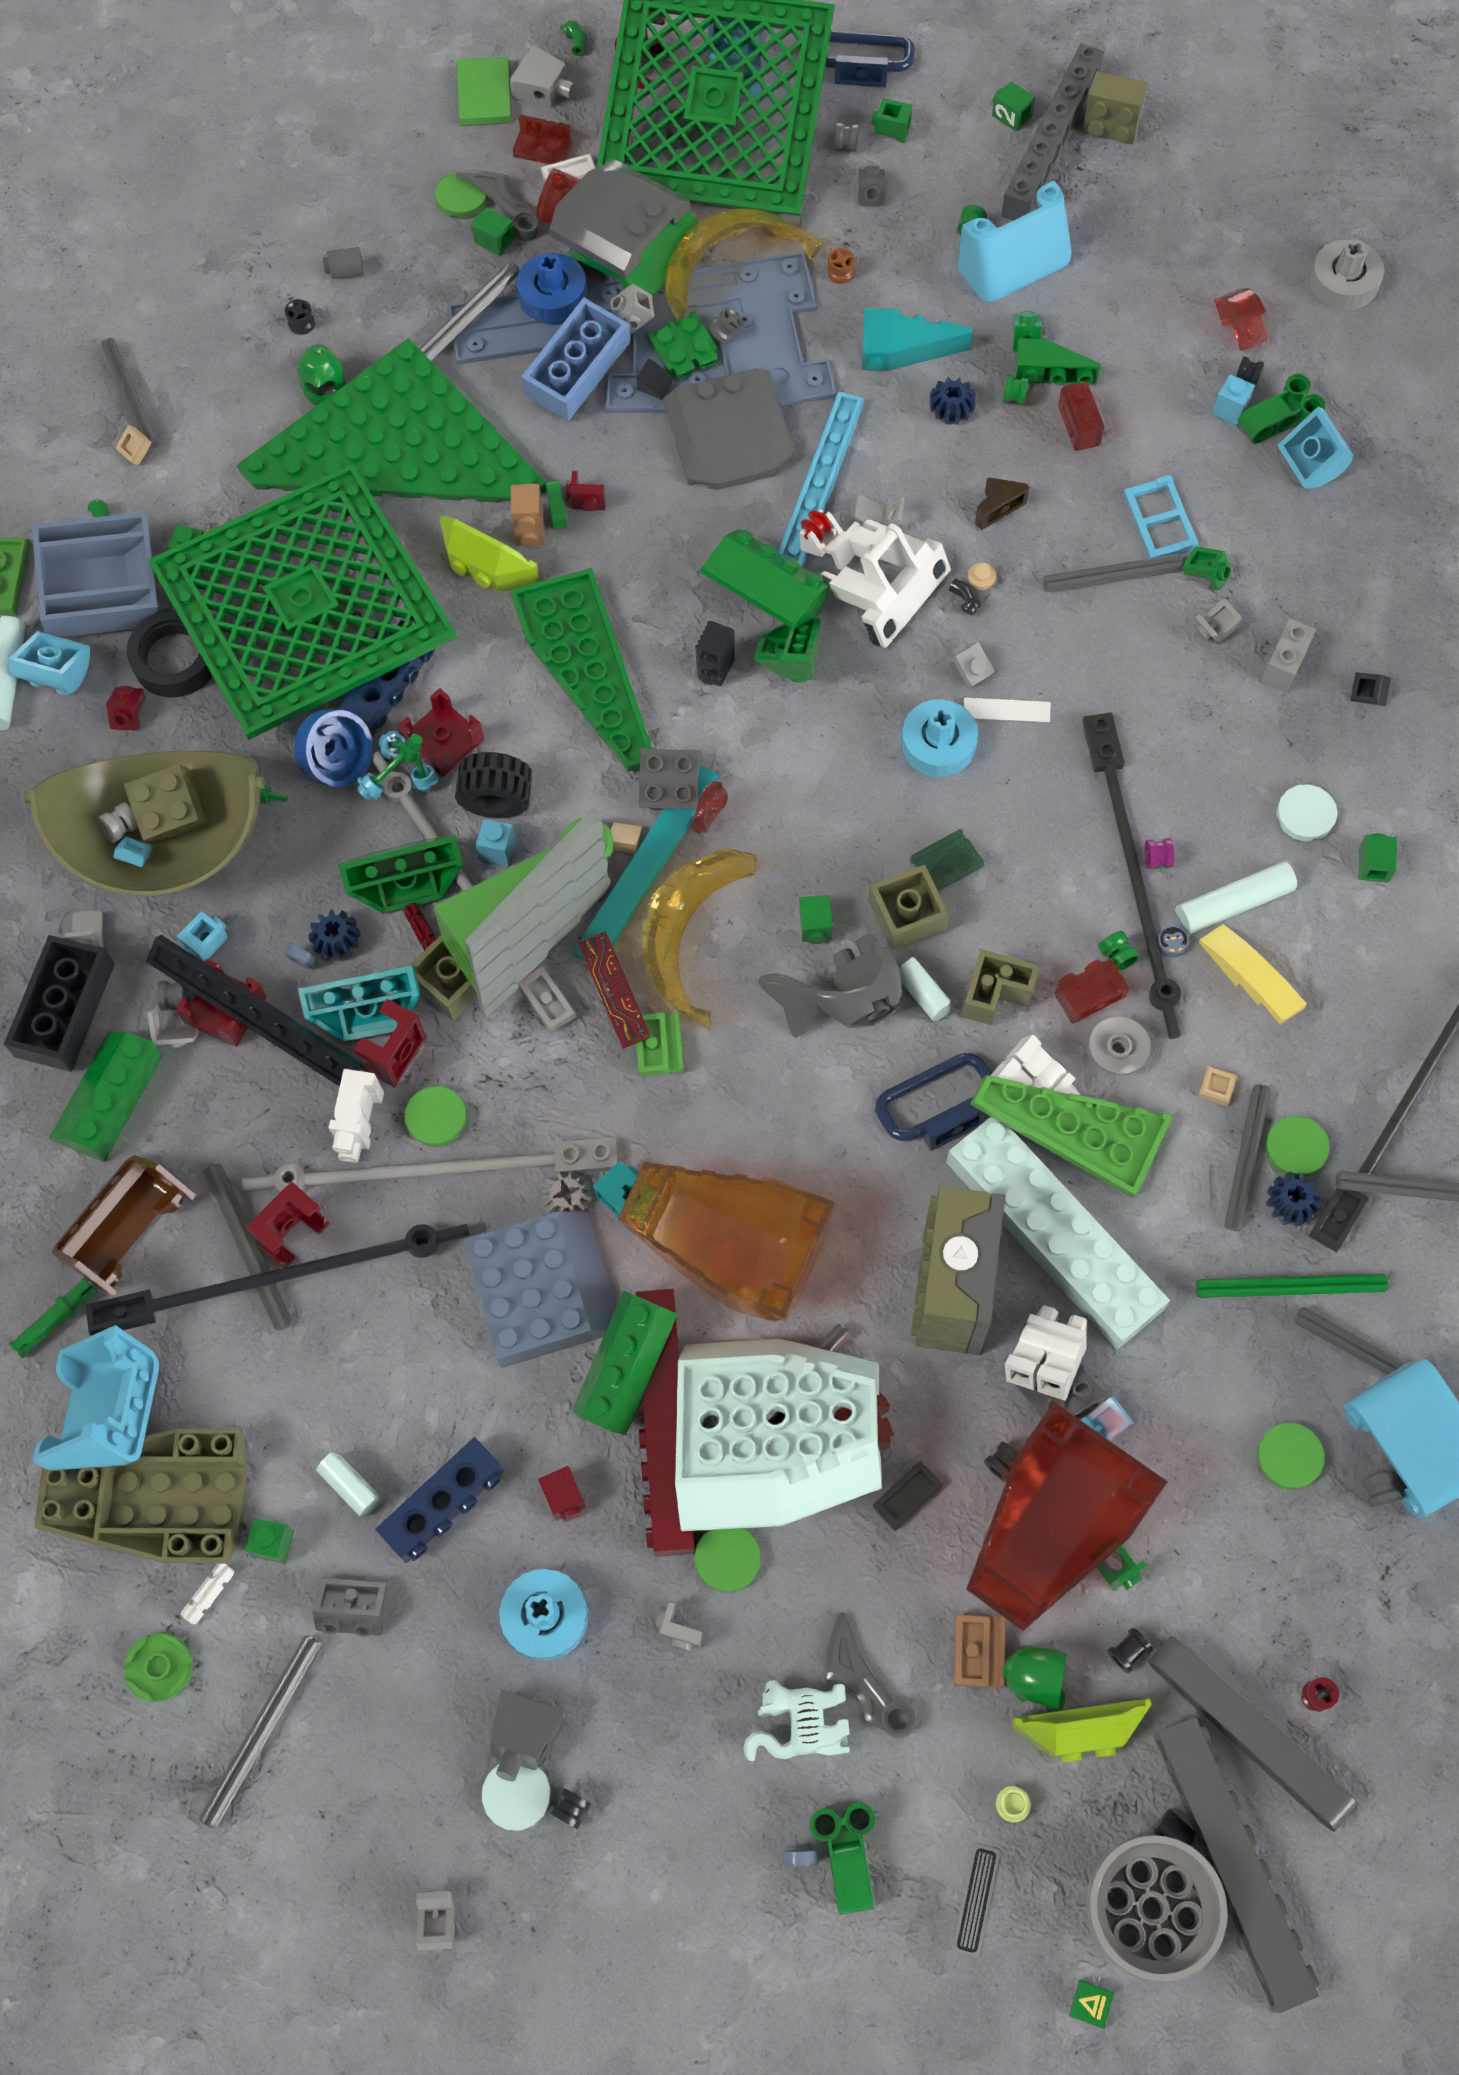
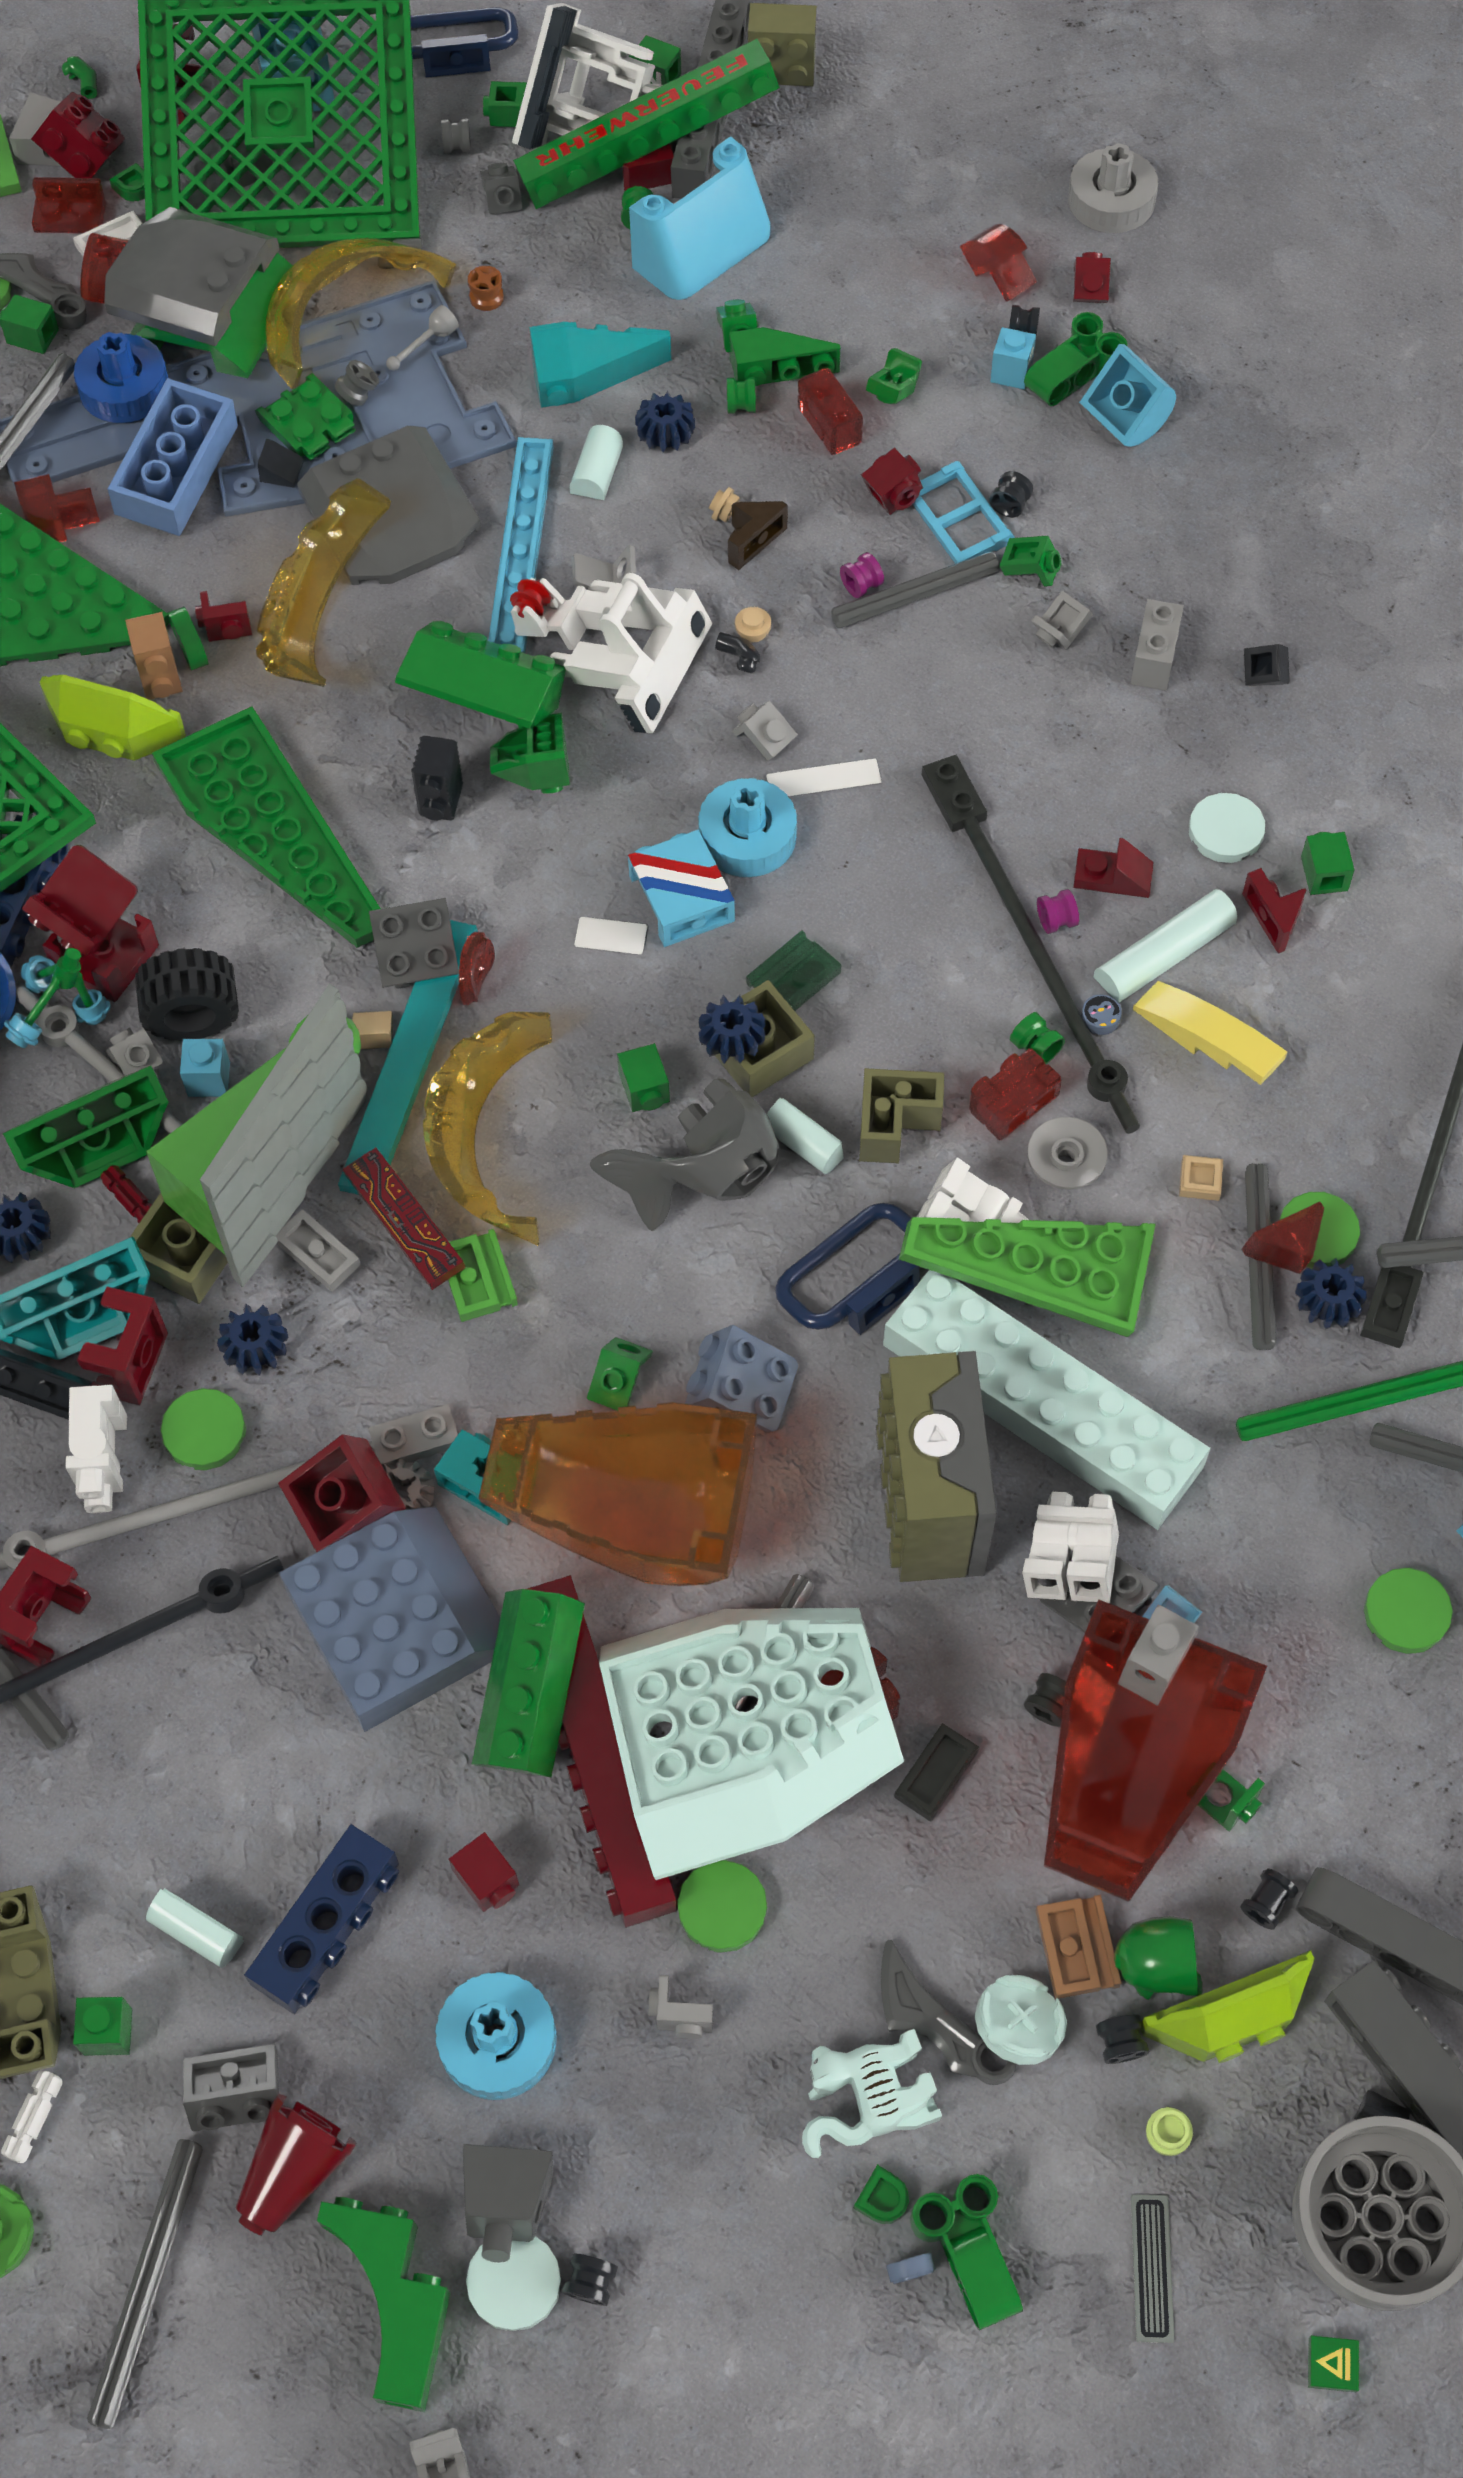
camera: 15 degrees left, 5 degrees down
(378, 1671) = (289, 2164): none -> dark red cone
(431, 698) = (81, 901): none -> dark red bracket
(436, 1799) = (409, 2310): none -> green arch
(446, 820) = (133, 1051): none -> light grey bracket
(477, 384) = (55, 512): none -> clear red brick
(481, 1068) = (268, 1339): none -> dark blue gear
(521, 1188) = (340, 1491): none -> dark red brick
(561, 87) = (78, 136): none -> dark red bracket
(592, 130) = (129, 183): none -> green tile
(633, 306) = (234, 379): light grey brick -> none
(654, 476) = (307, 578): none -> clear yellow windscreen
(744, 1141) = (617, 1373): none -> green bracket
(793, 1800) = (883, 2197): none -> green tile
(800, 289) = (441, 324): none -> light grey hinge
(817, 801) = (610, 935): none -> white sticker
(834, 1166) = (742, 1376): none -> sand blue bracket
(879, 775) = (682, 887): none -> medium azure panel
(879, 891) = (731, 1029): none -> dark blue gear
(893, 423) = (597, 462): none -> light aqua brick
(924, 1696) = (1020, 2020): none -> light aqua tile
(931, 132) = (560, 38): none -> white container
(980, 476) = (722, 504): none -> tan plate
(990, 185) = (649, 170): none -> dark red slope
(993, 156) = (647, 123): none -> green brick
(995, 1728) = (1122, 2039): none -> black wheel
(1074, 554) = (861, 575): none -> magenta wheel
(1087, 1455) = (1158, 1654): none -> light grey torso
(1116, 482) = (893, 481): none -> dark red brick
(1138, 399) = (897, 377): none -> green bracket
(1205, 510) = (1011, 494): none -> black wheel
(1212, 831) = (1117, 873): none -> dark red slope
(1270, 1153) = (1289, 1241): none -> clear red slope
(1311, 345) = (1091, 278): none -> dark red bracket
(1326, 890) = (1274, 913): none -> dark red slope

